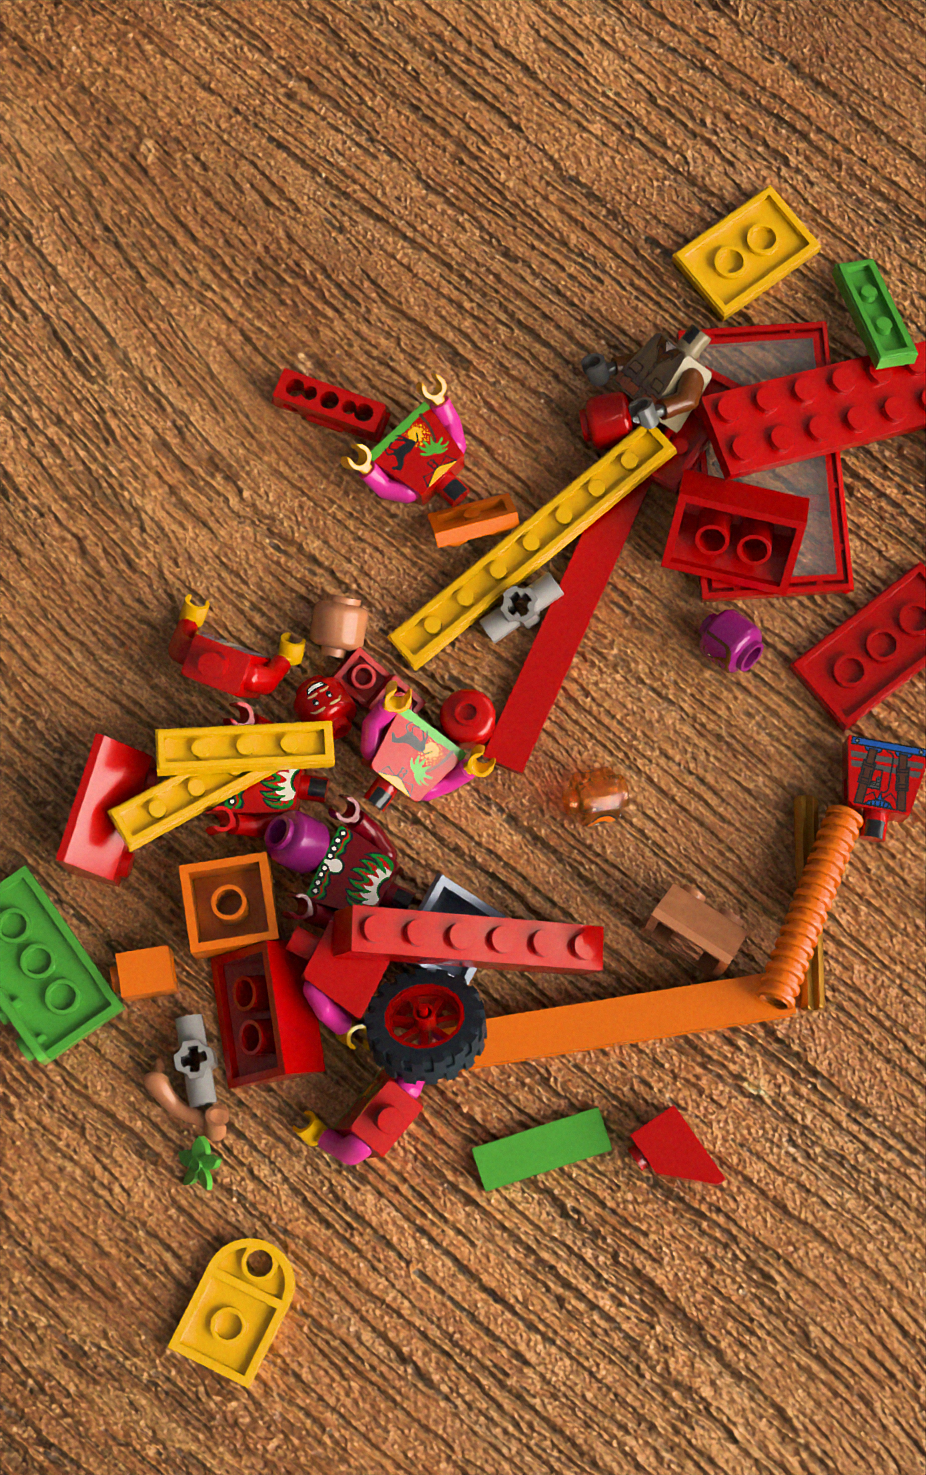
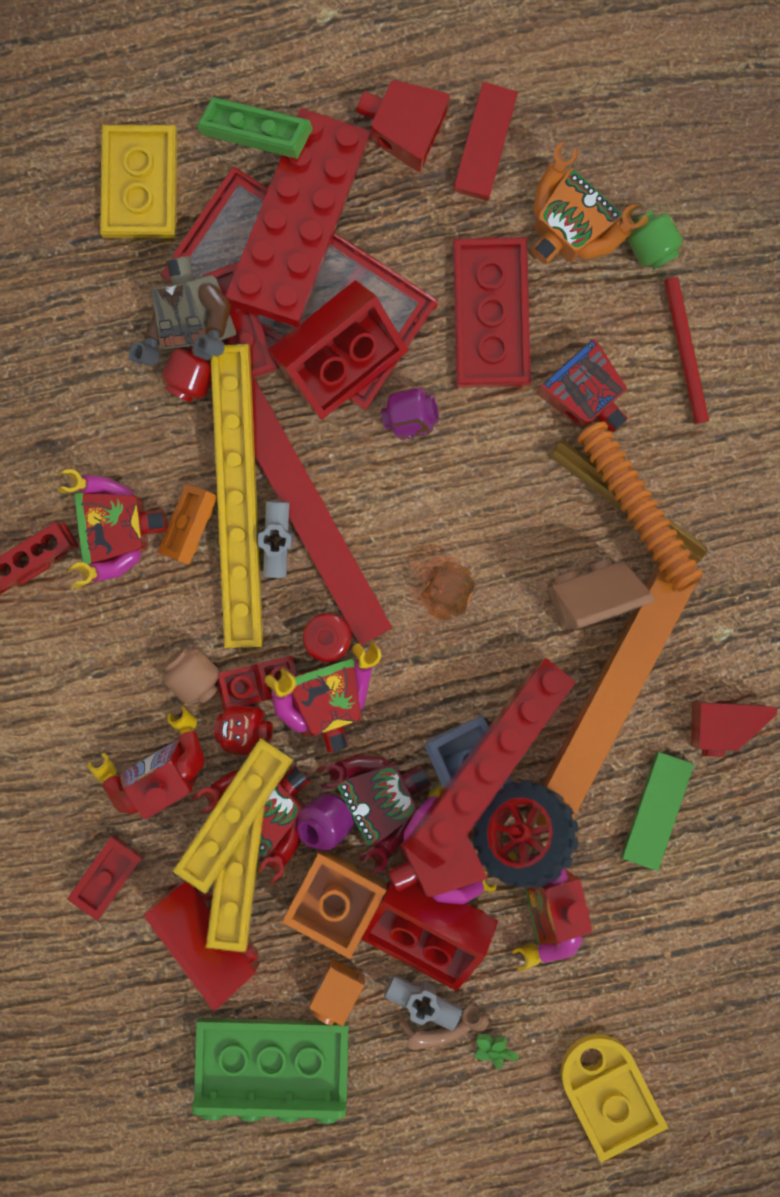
camera: 55 degrees left, 10 degrees up
(96, 687) = (105, 877): none -> red plate

